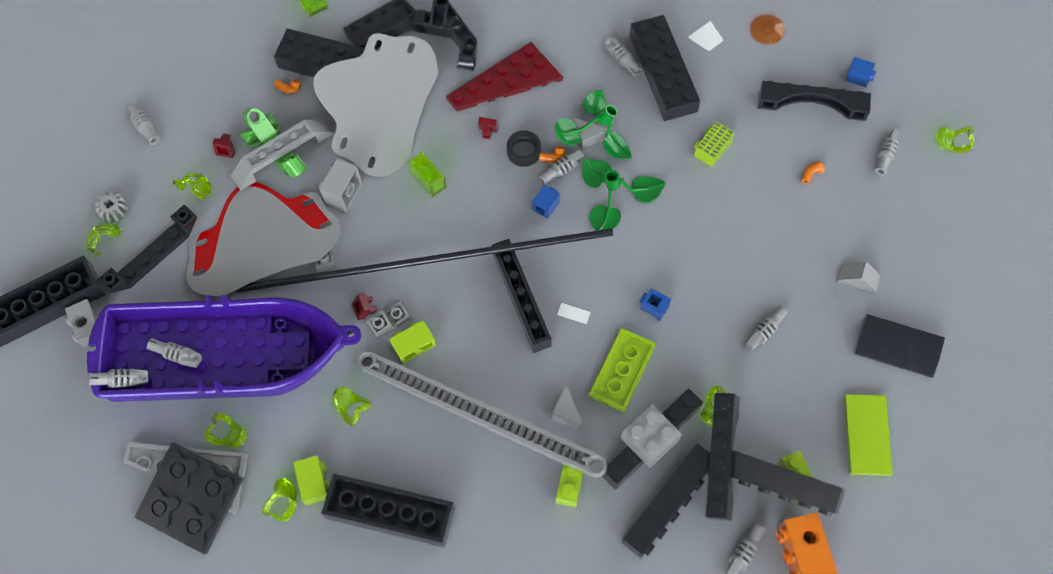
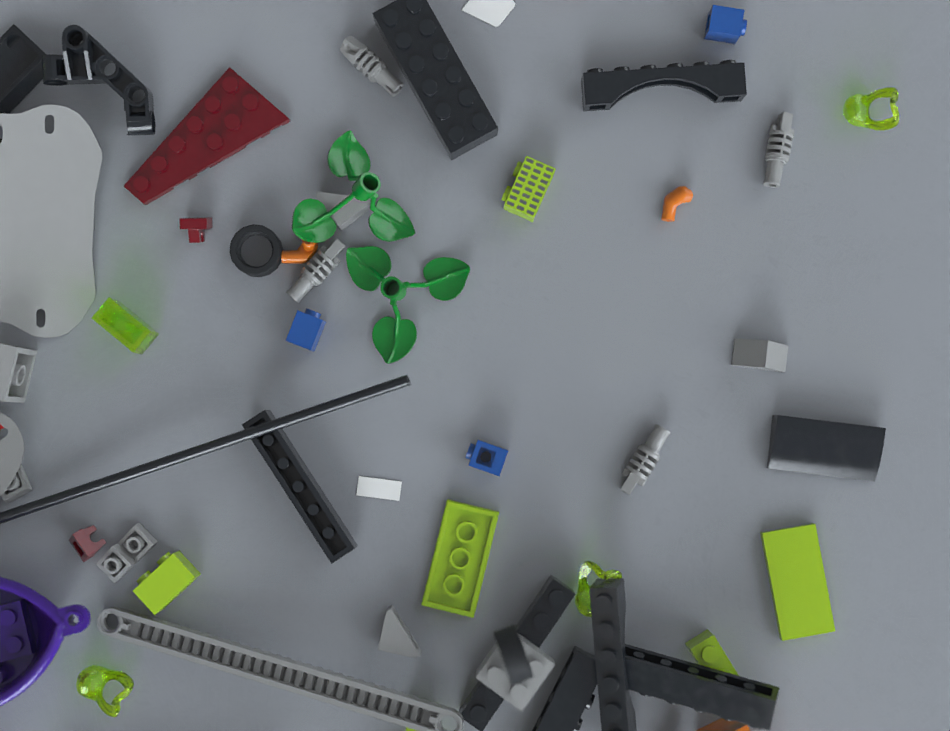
camera: 15 degrees left, 20 degrees up
(654, 410) = (513, 654): none -> black tyre

